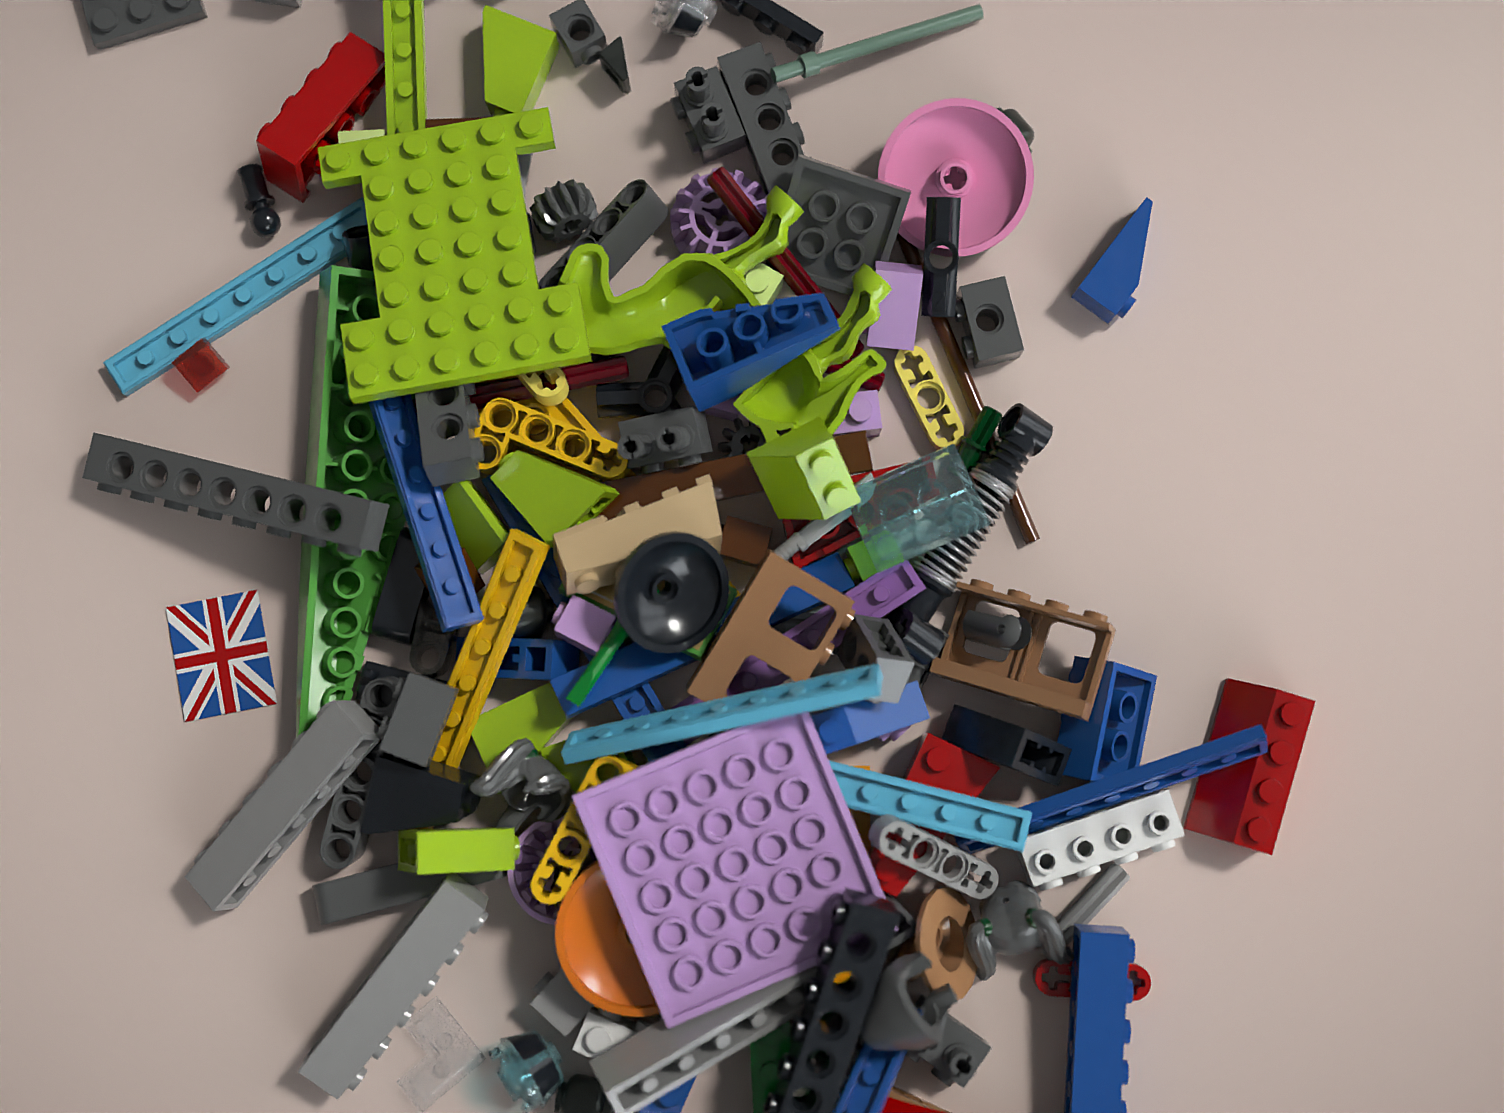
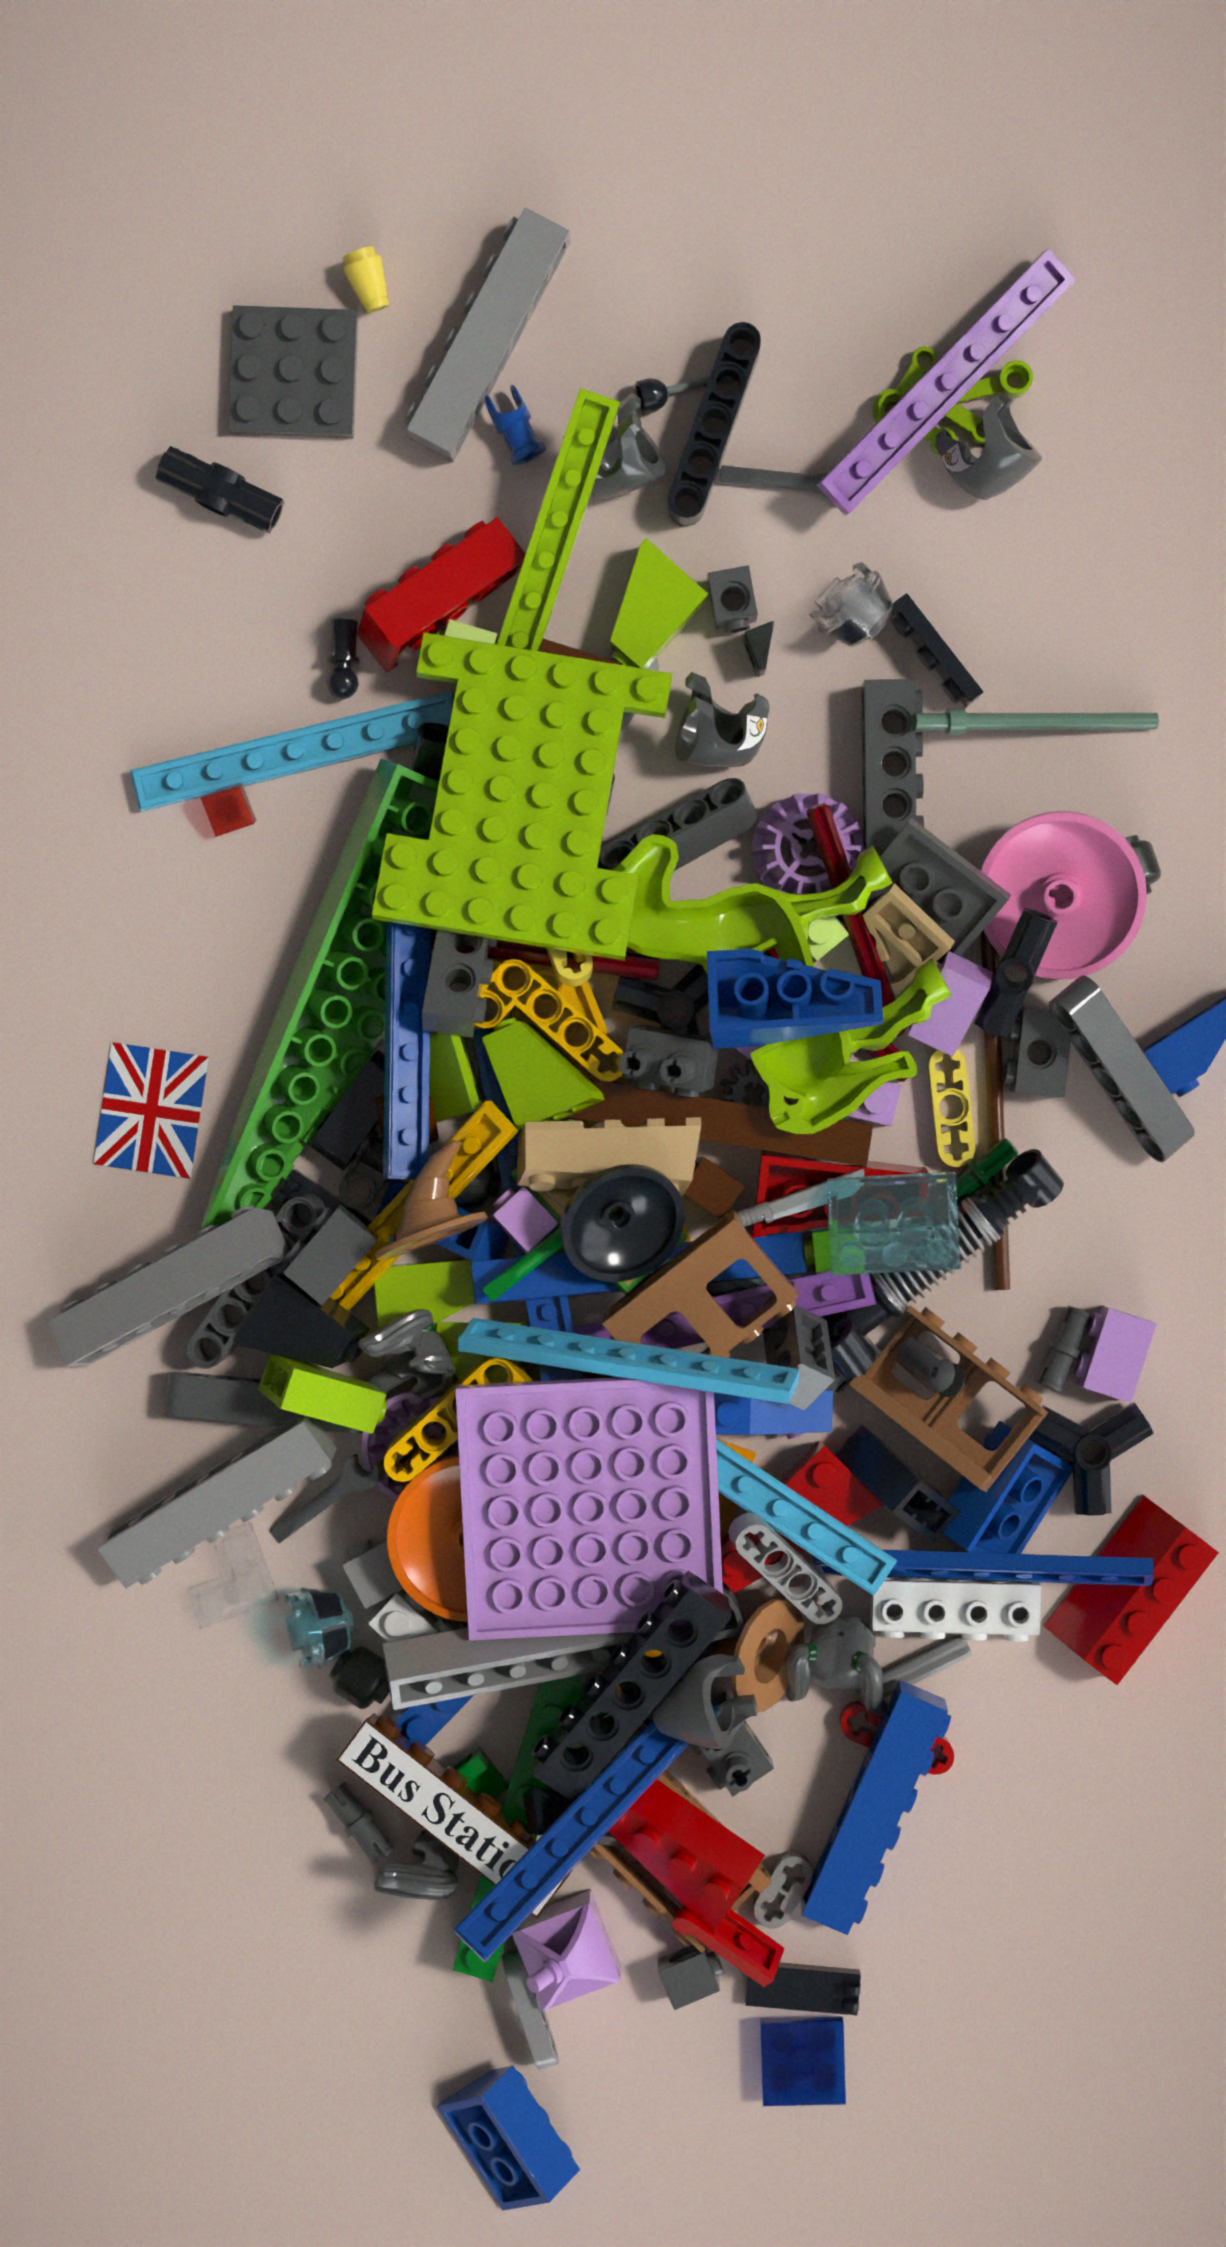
camera: 20 degrees right, 5 degrees up
(102, 96) = (219, 489): none -> black piece
(111, 464) = (342, 1034): dark grey brick -> none
(493, 647) = (427, 1210): none -> medium nougat piece
(510, 921) = (350, 1479): none -> dark grey piece
(563, 211) = (650, 784): dark grey gear -> none
(608, 153) = (716, 736): none -> dark grey piece
(708, 113) = (834, 732): dark grey brick -> none
(804, 474) = (795, 1152): lime slope -> none
(830, 258) = (904, 935): none -> tan wing
(1064, 307) = (1121, 1068): none -> dark grey beam
(1108, 572) = (1064, 1349): none -> dark grey pin
(1153, 560) = (1114, 1353): none -> lavender brick
(1179, 633) = (1092, 1477): none -> black piece

